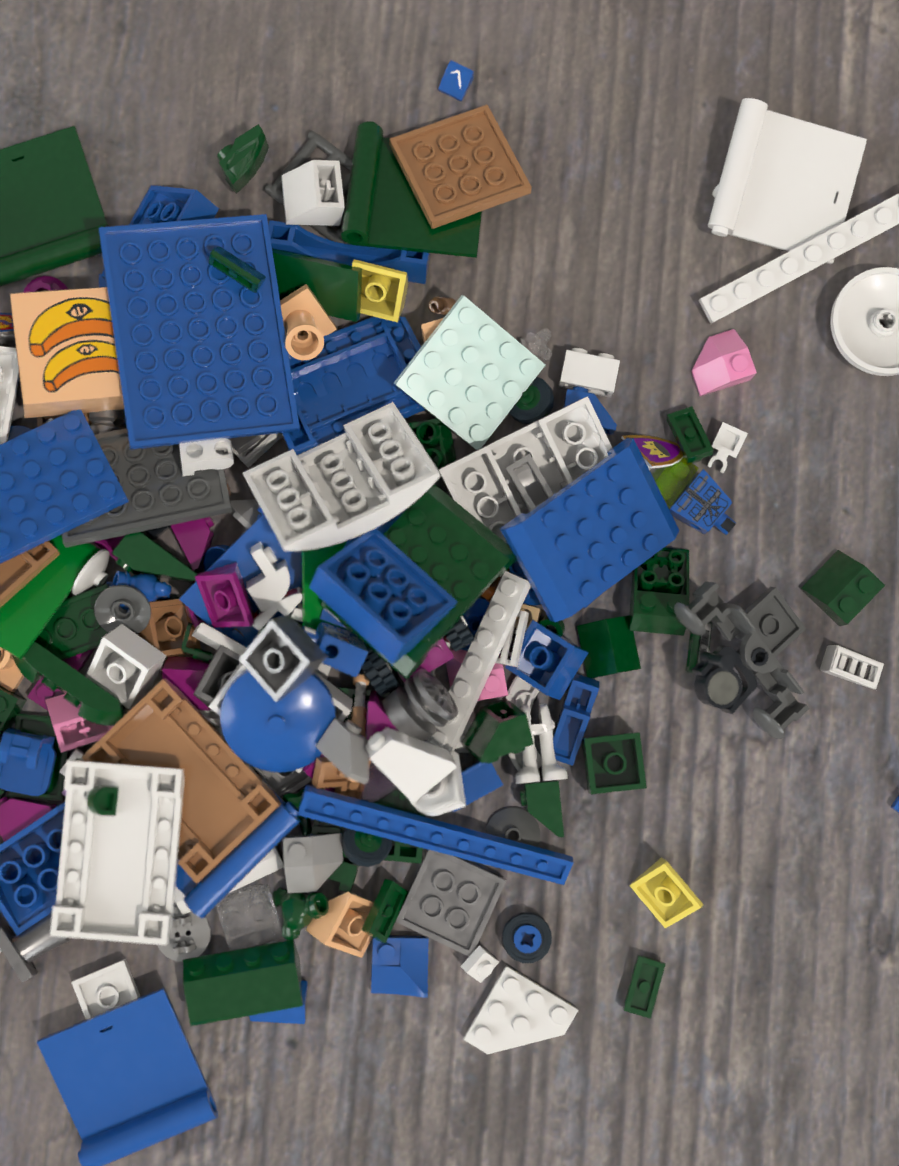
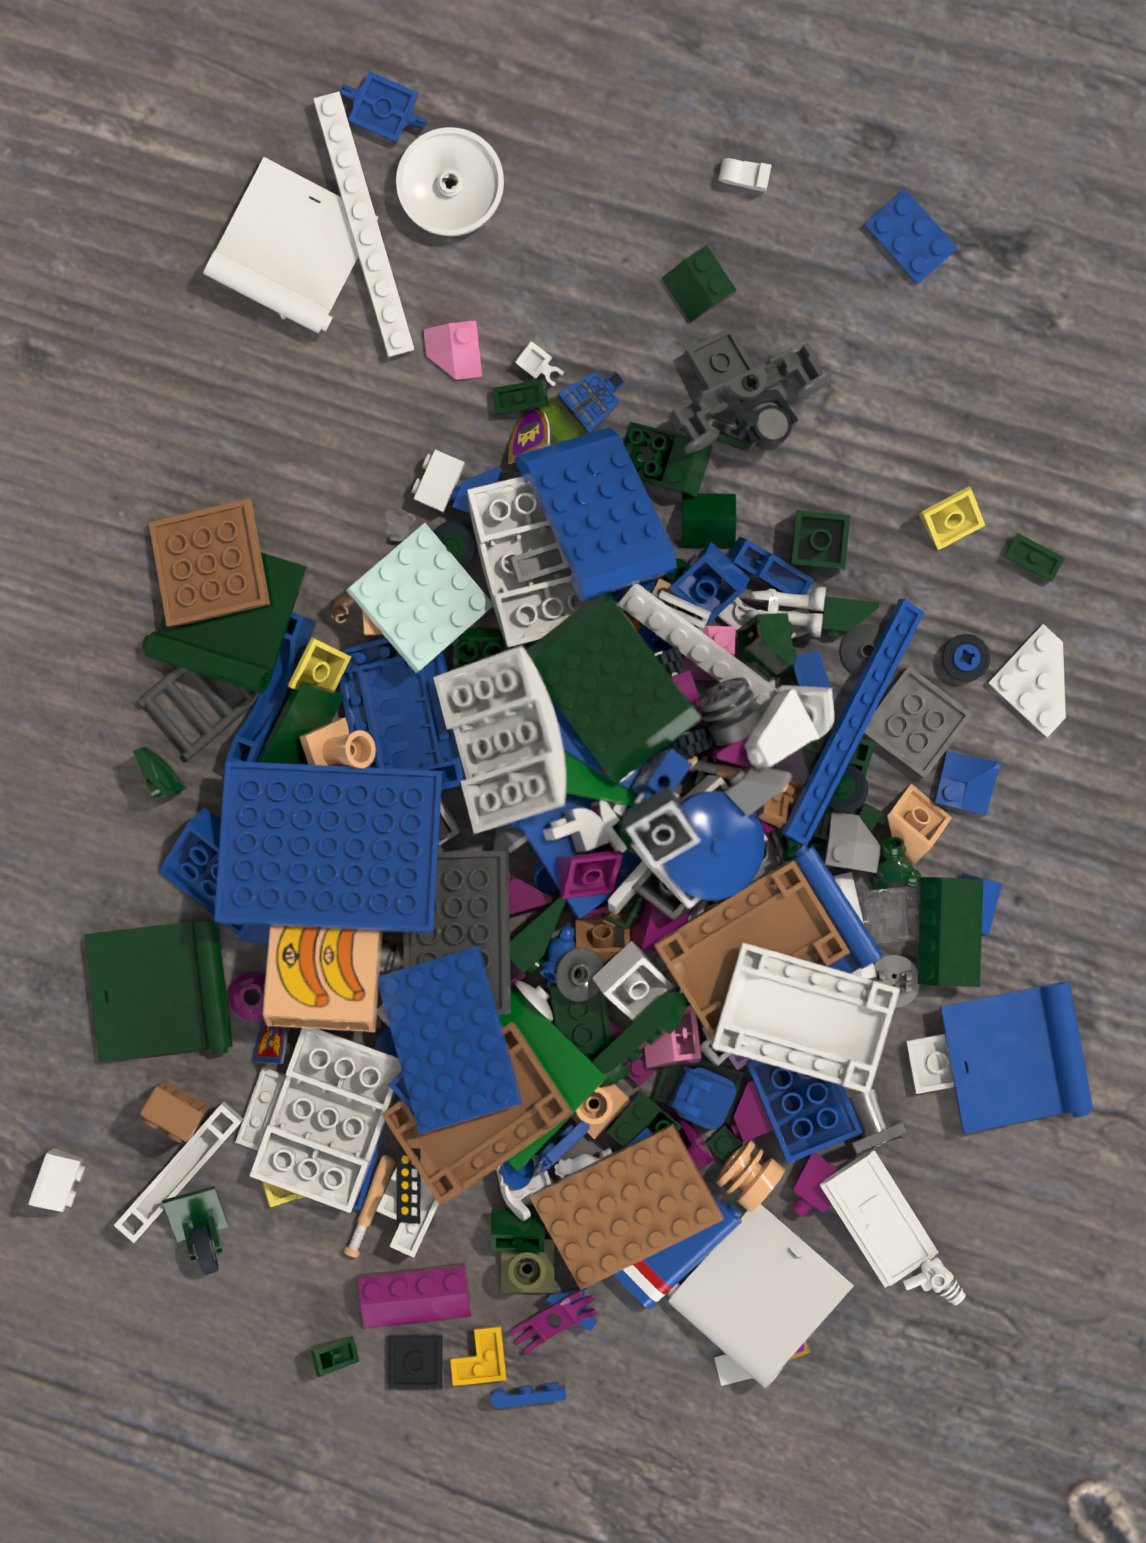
camera: 75 degrees left, 5 degrees up
(103, 800) = (756, 1021): dark green tile -> none
(206, 455) = (450, 865): white leg -> none
(236, 269) = (277, 798): dark green slope -> none
(313, 194) = (210, 712): white slope -> none
(382, 594) = (621, 723): blue slope -> none
(385, 911) = (912, 785): dark green plate -> none
(456, 80) = (117, 548): blue slope -> none
(480, 964) = (981, 707): white plate -> none
(835, 660) = (763, 308): white slope -> none

